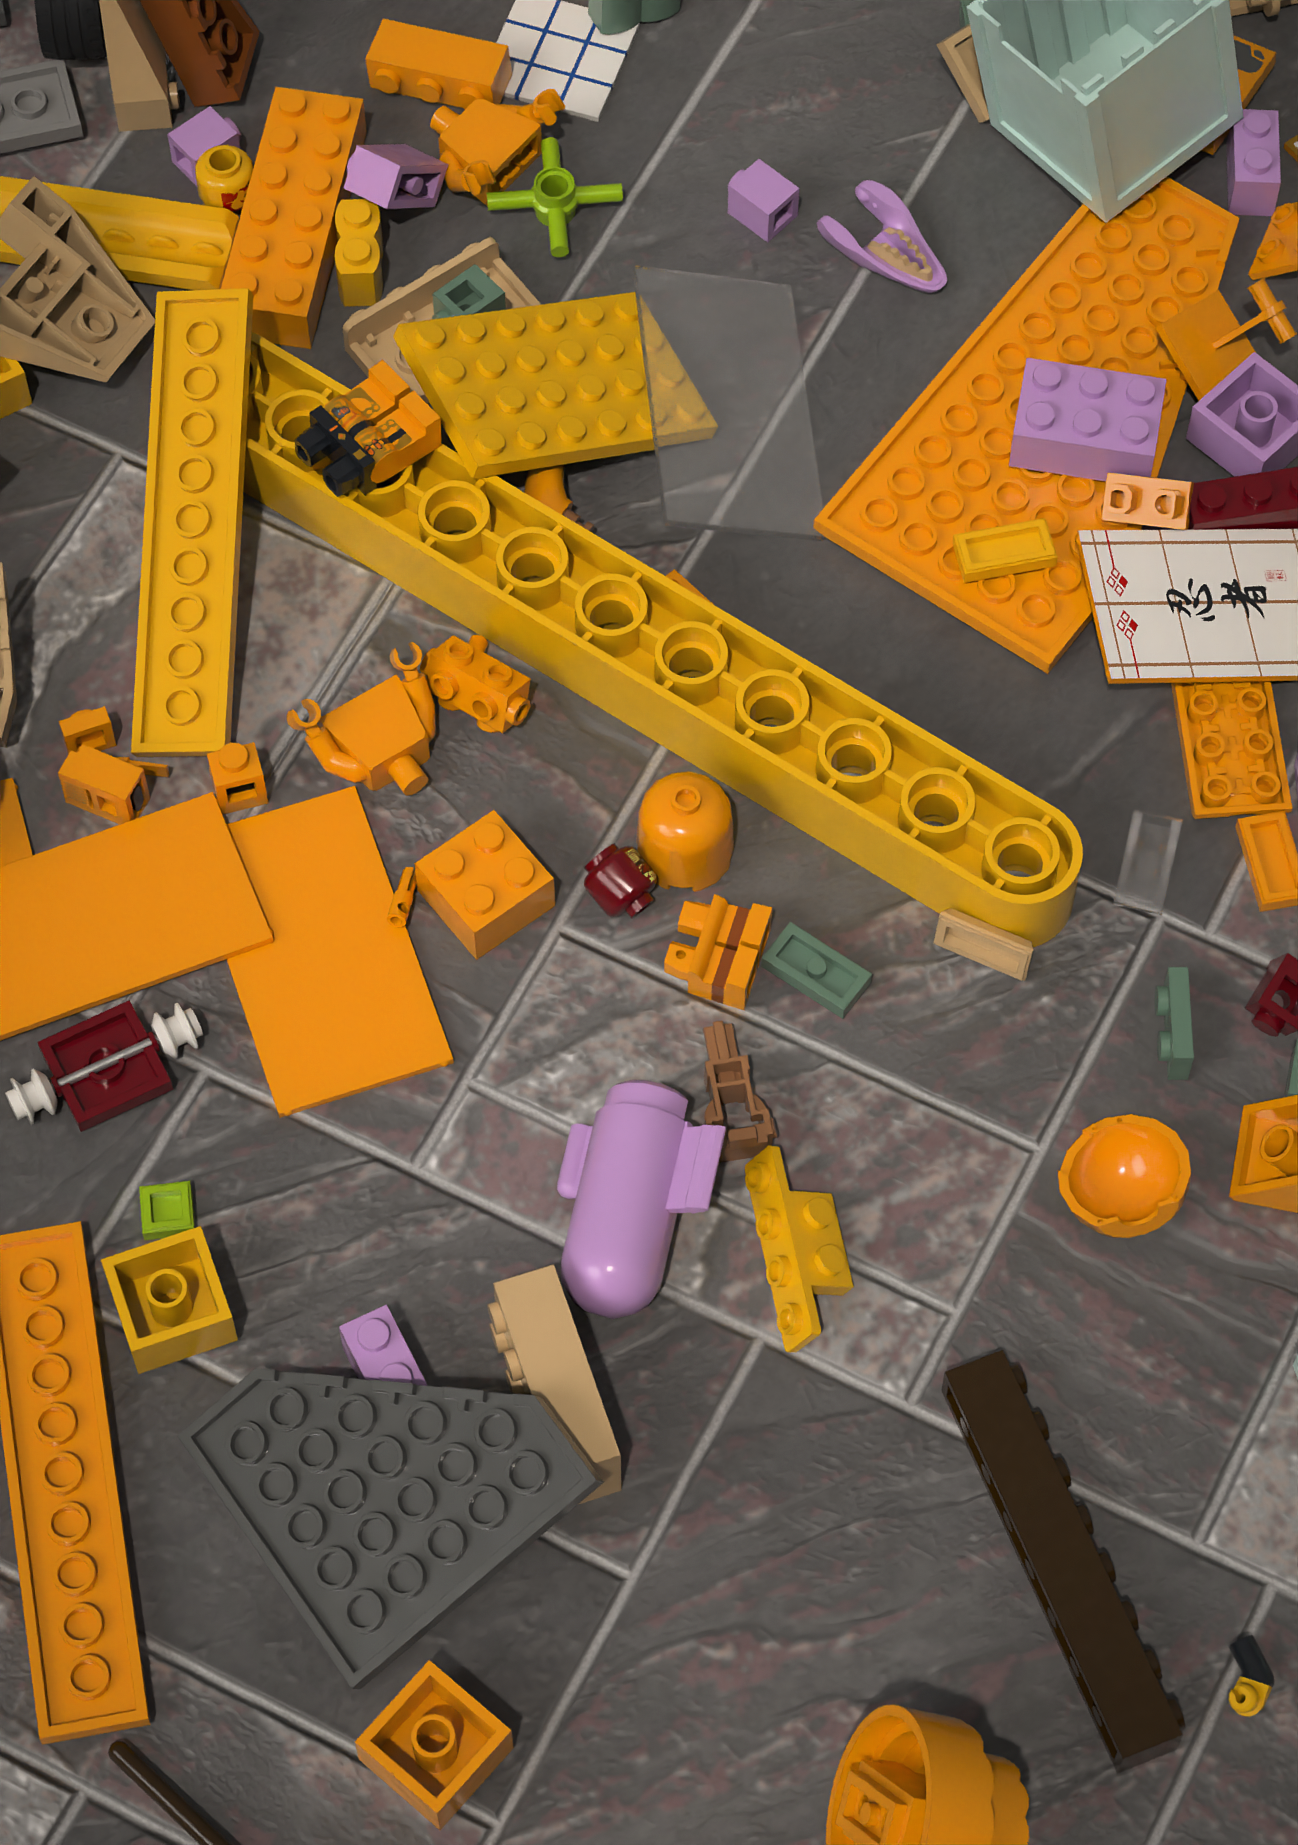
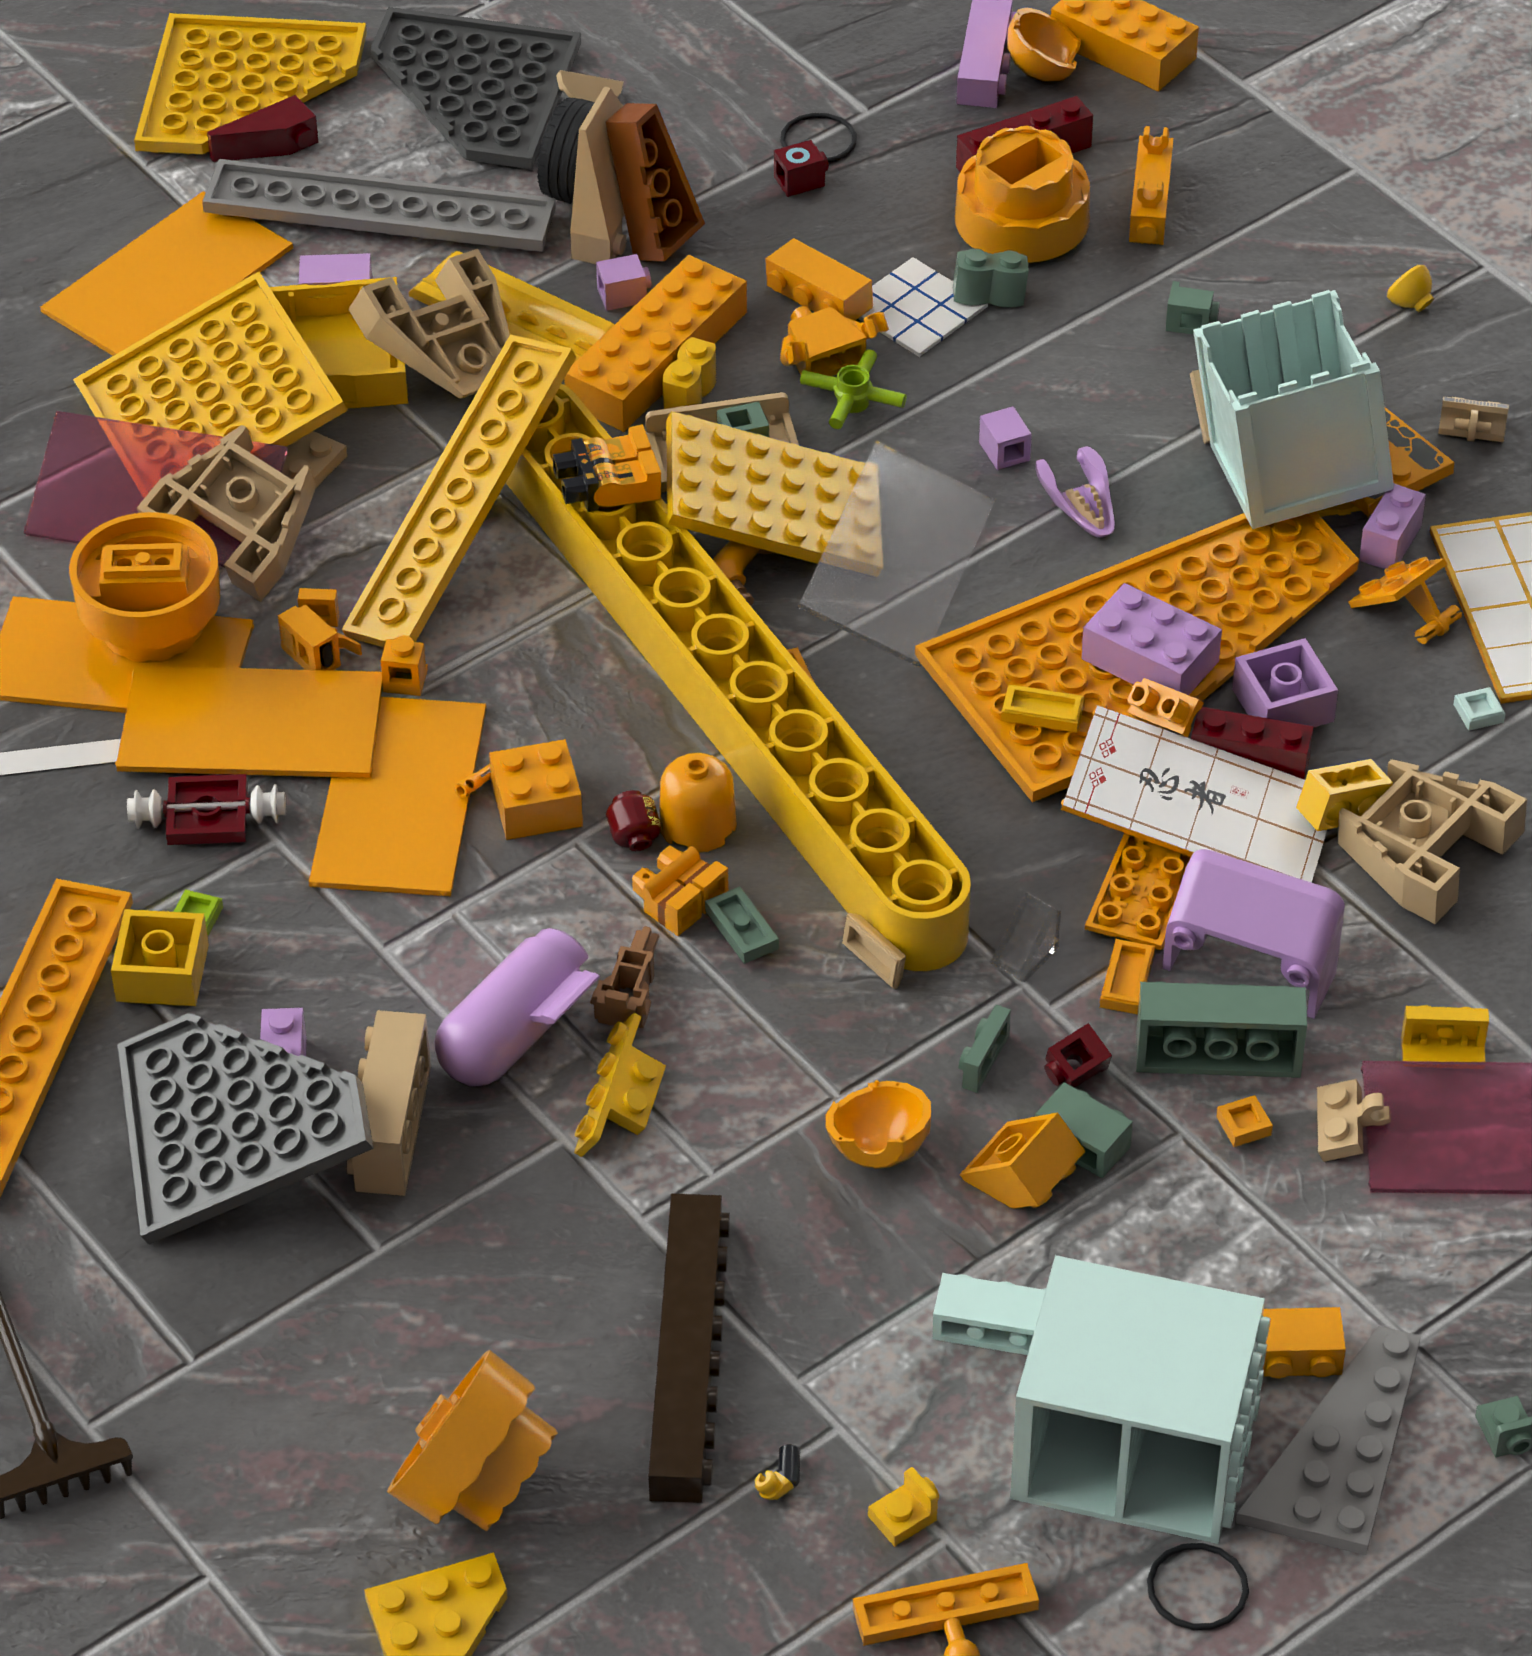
camera: 25 degrees right, 15 degrees down
(223, 177) = (619, 297): yellow head -> none
(378, 733) = (518, 673): light orange torso -> none
(395, 176) = (740, 335): lavender brick -> none
(434, 1744) = (173, 1286): light orange brick -> none
(477, 683) = (606, 665): light orange brick -> none
(1212, 343) = (1288, 618): light orange plate -> none

